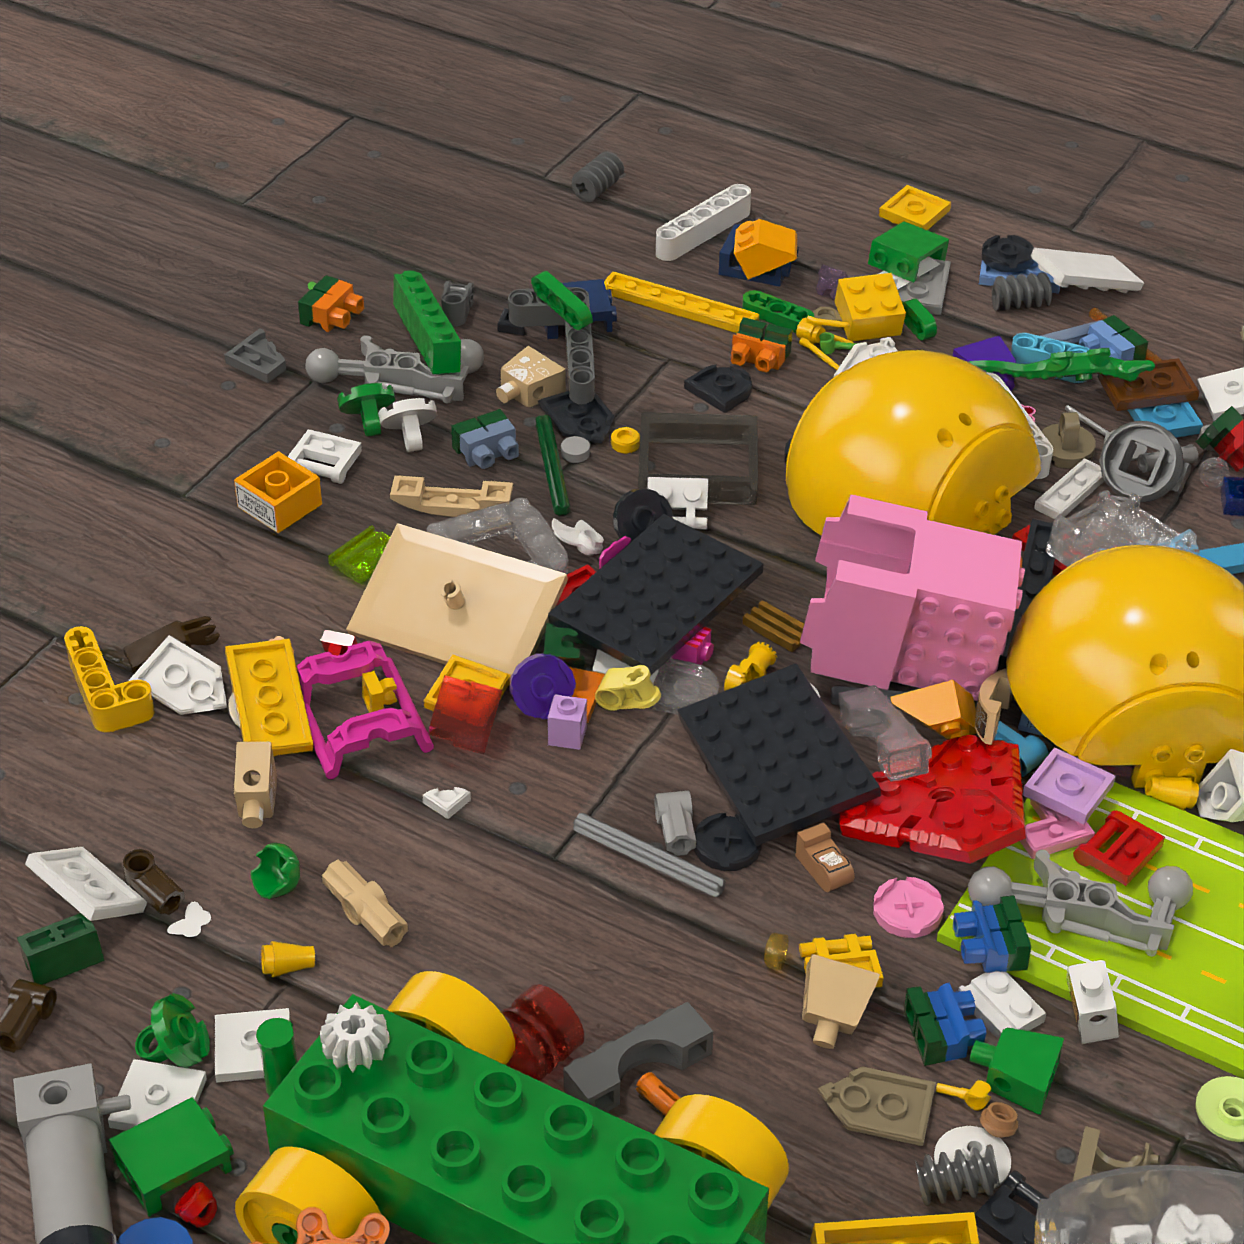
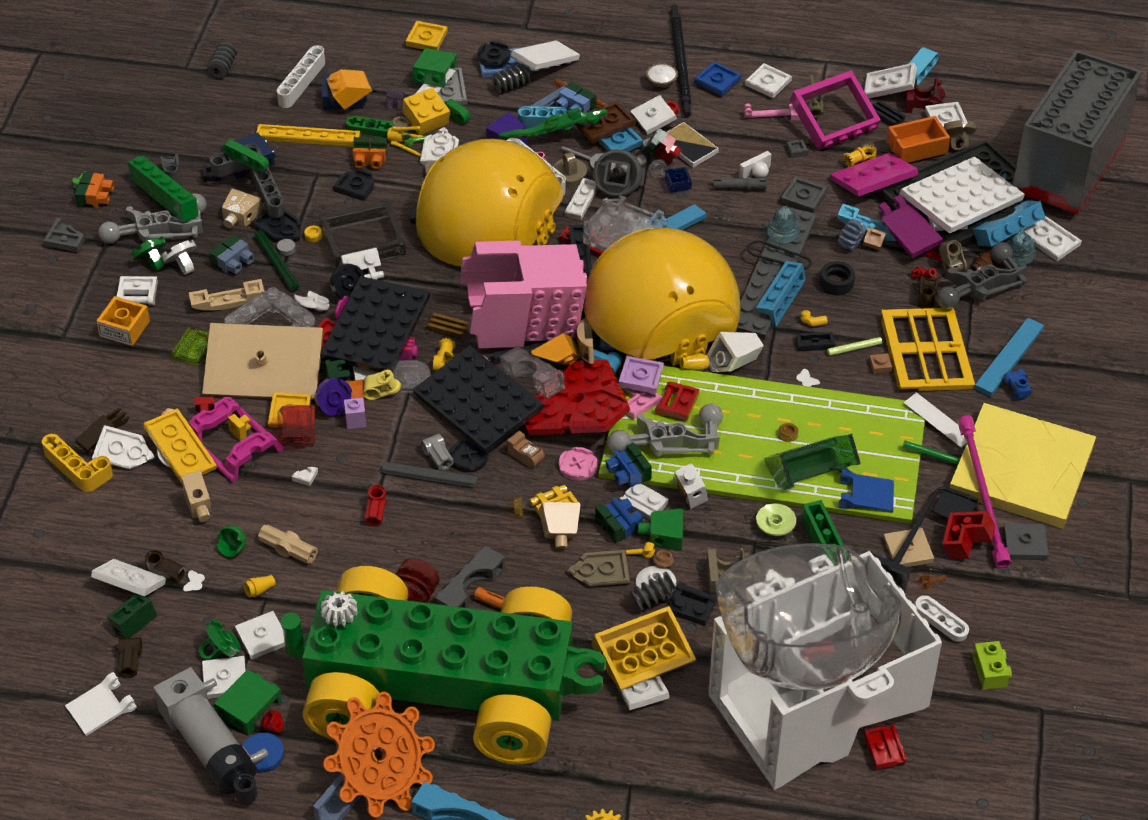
camera: 20 degrees left, 5 degrees up
(535, 881) = (376, 505): none -> red piece

